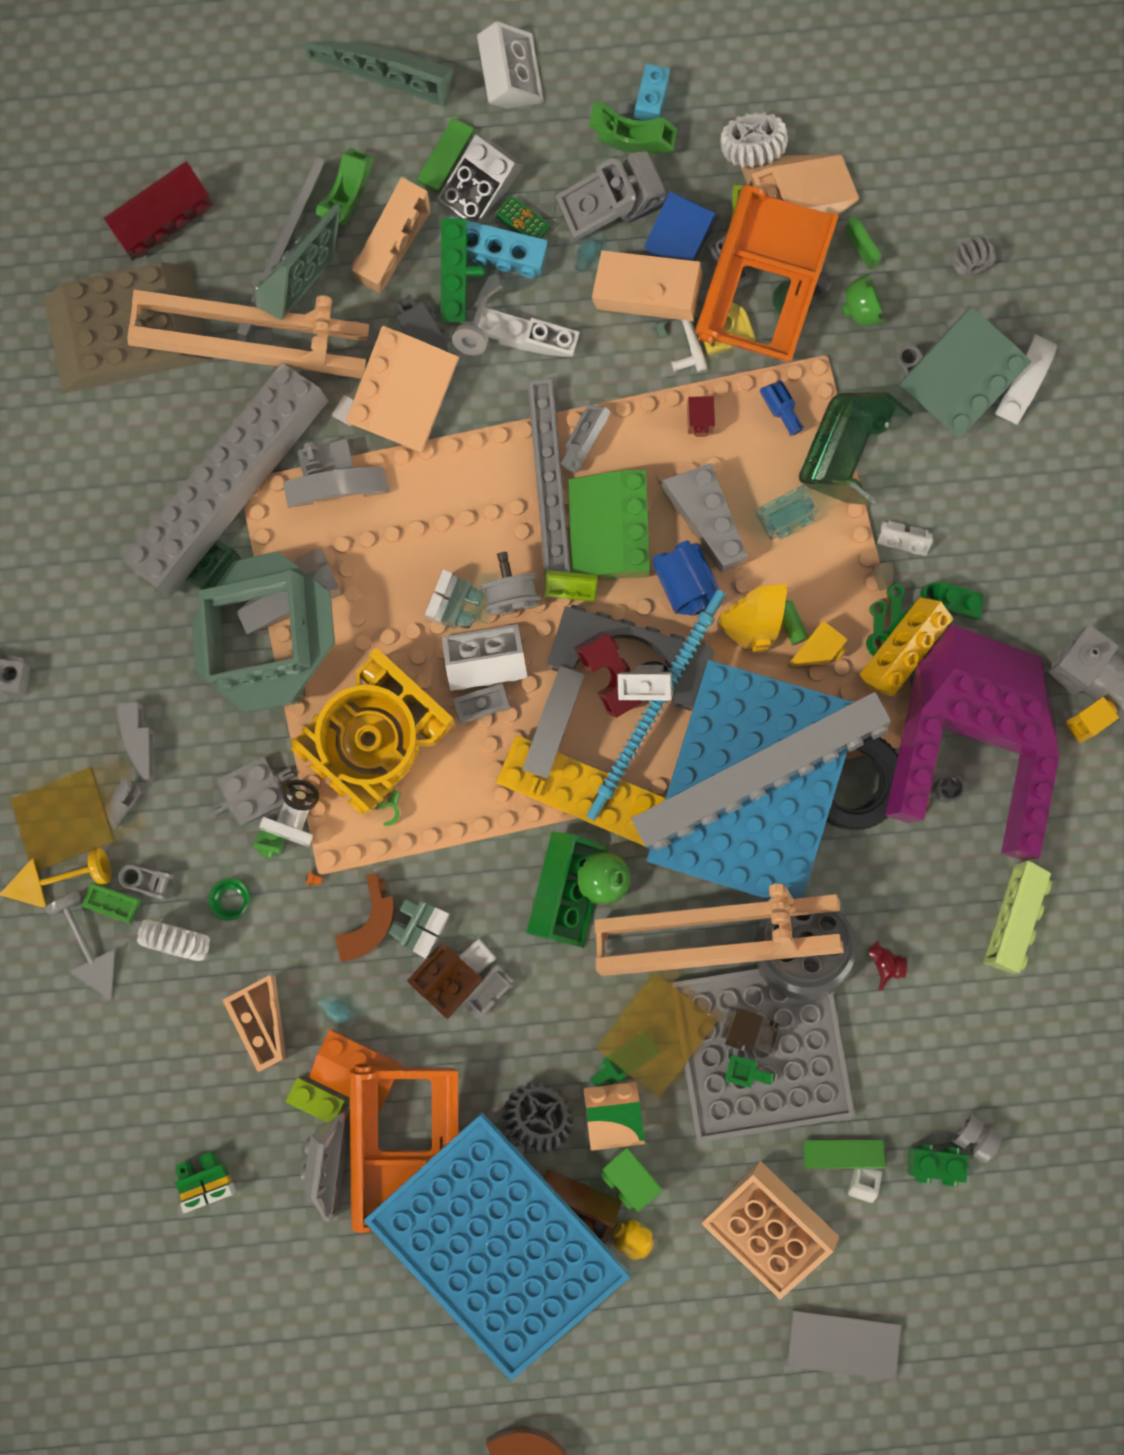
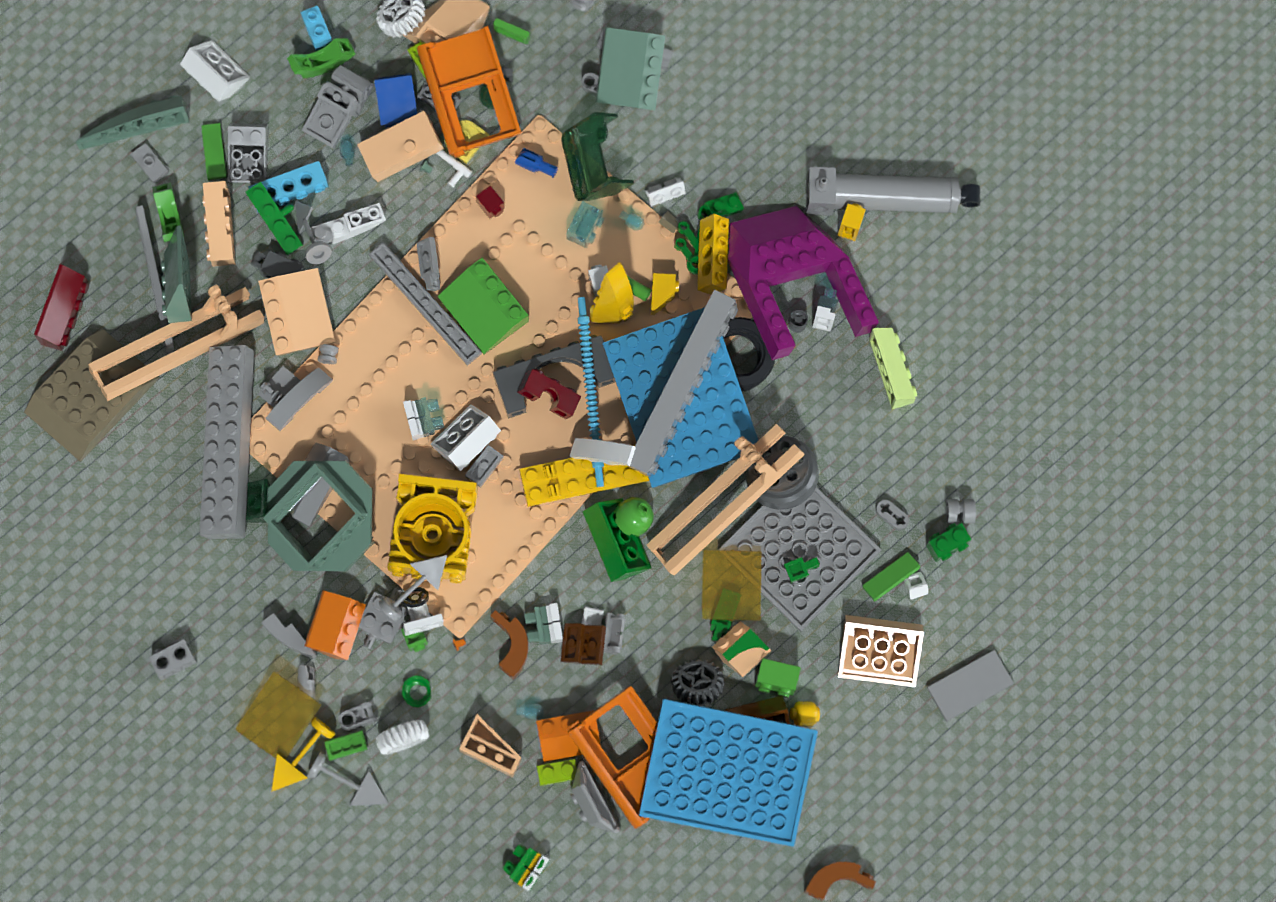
camera: 40 degrees left, 5 degrees down
(191, 764) = (335, 625): none -> orange slope
(331, 779) = (430, 569): none -> light grey piece
(342, 409) = (267, 349): white sticker -> none
(368, 121) = (149, 163): none -> light grey plate
(392, 802) = (474, 563): bright green piece -> none
(402, 460) = (328, 354): none -> light grey wheel
(510, 591) = (453, 386): light grey wheel -> none
(522, 219) = (291, 158): green tile -> none
(553, 722) = (537, 443): light grey slope -> none
(570, 585) = (486, 358): lime plate -> none
(617, 784) = (602, 451): none -> white slope
(646, 682) = (575, 382): white piece -> none
(686, 578) = (554, 305): blue cylinder -> none
(705, 510) = (537, 258): light grey wedge -> none
(749, 1030) = (783, 540): dark brown wedge -> none
(759, 577) = (596, 276): none -> white brick
(844, 545) = (632, 221): none -> clear light blue cylinder
(863, 303) = (538, 67): bright green cylinder -> none
(887, 964) = (836, 448): dark red animal -> none
(889, 1085) = (895, 511): none -> light grey beam
(993, 794) = (825, 310): none -> hips
(1025, 386) = (672, 55): white arch -> none

